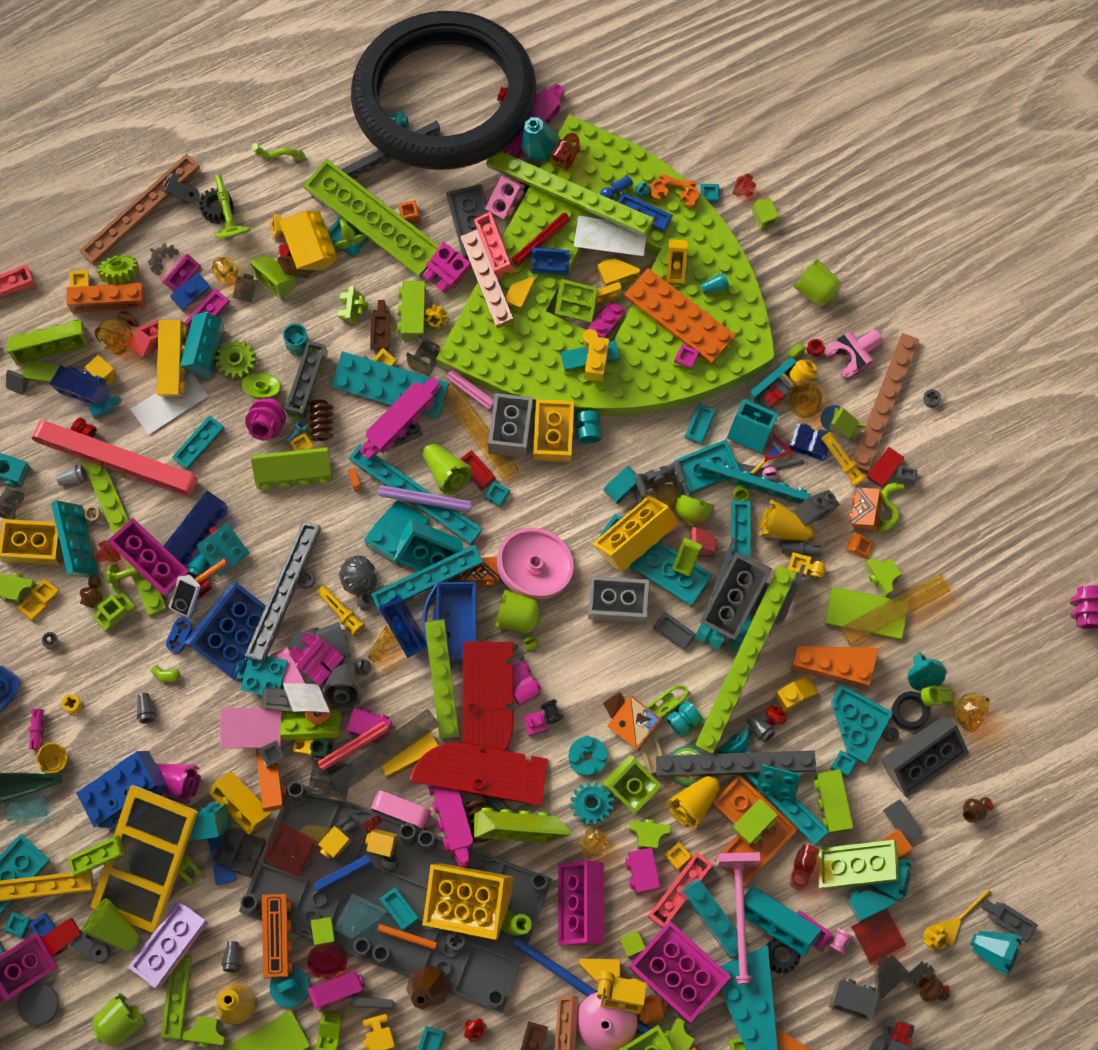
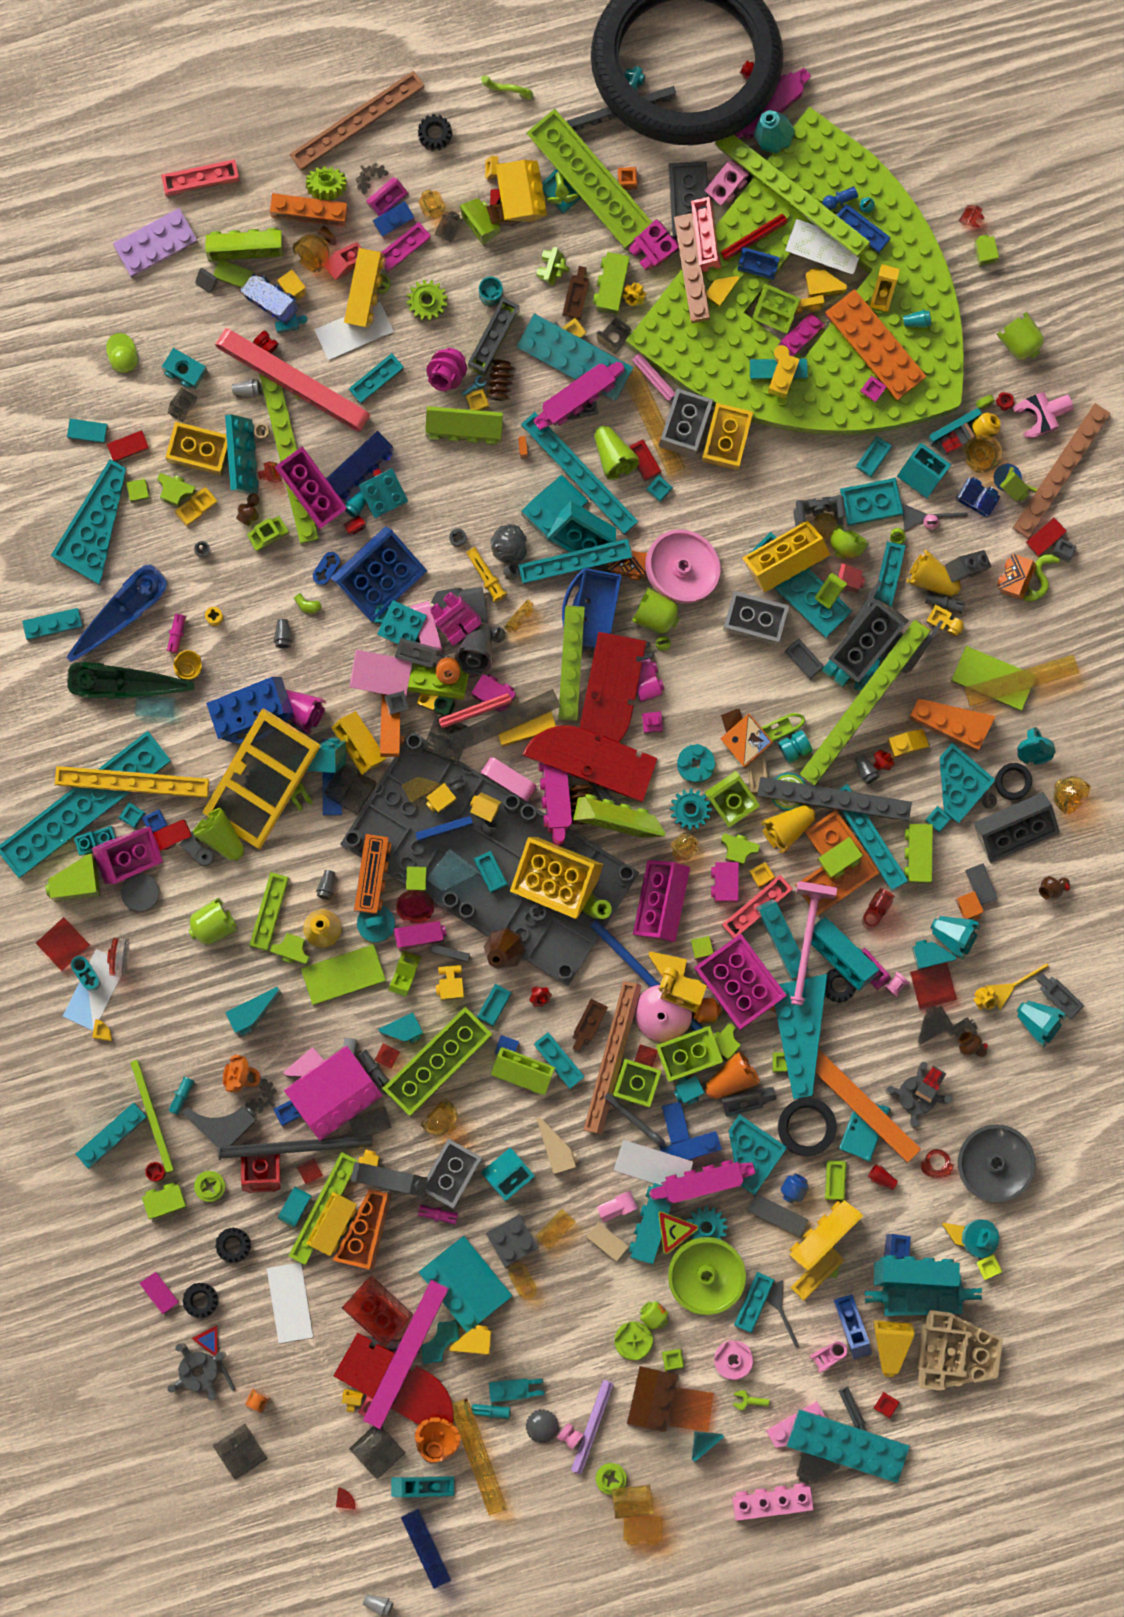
camera: 10 degrees right, 10 degrees up
(79, 278) = (285, 185): yellow plate -> none
(96, 856) = (217, 767): lime tile -> none
(113, 577) = (272, 499): lime plant -> none
(168, 945) = (270, 862): lavender plate -> none
(179, 190) = (405, 113): dark grey leg -> none
(184, 595) = (339, 532): slope -> none
(202, 345) = (397, 280): teal slope -> none
(211, 571) = (360, 516): orange bar -> none
(231, 227) = (445, 160): lime dish -> none
(260, 385) = (447, 332): lime dish -> none
(283, 592) = (434, 546): tile -> none
(289, 849) = (398, 796): clear red tile -> none
(305, 697) = (439, 656): white sticker -> none
(372, 823) = (479, 787): clear red tile -> none
(403, 626) = (544, 603): clear blue brick -> none
(407, 936) = (493, 899): orange bar -> none
(425, 498) = (588, 480): lavender axle -> none
(552, 711) = (670, 714): black bush -> none
(563, 154) = (795, 152): clear red piece -> none
(588, 427) = (762, 439): teal wheel -> none
(621, 485) = (783, 504): teal beam -> none
(659, 188) = (883, 206): orange helmet -> none
(710, 192) = (935, 216): teal tile -> none
(736, 742) = (840, 778): teal plate -> none
(752, 482) = (920, 531): teal plate -> none
(775, 450) = (942, 498): piece -> none
(778, 782) = (870, 825): teal hinge -> none
(851, 464) = (1009, 530): yellow pin -> none
(854, 999) = (896, 1039): dark grey brick -> none
(858, 864) = (928, 917): lime plate -> none
(859, 545) = (1002, 610): orange slope -> none
(882, 575) = (1017, 644): lime brick -> none
(936, 395) = (1114, 474): dark grey bush -> none
(938, 696) = (1043, 773): lime piece -> none

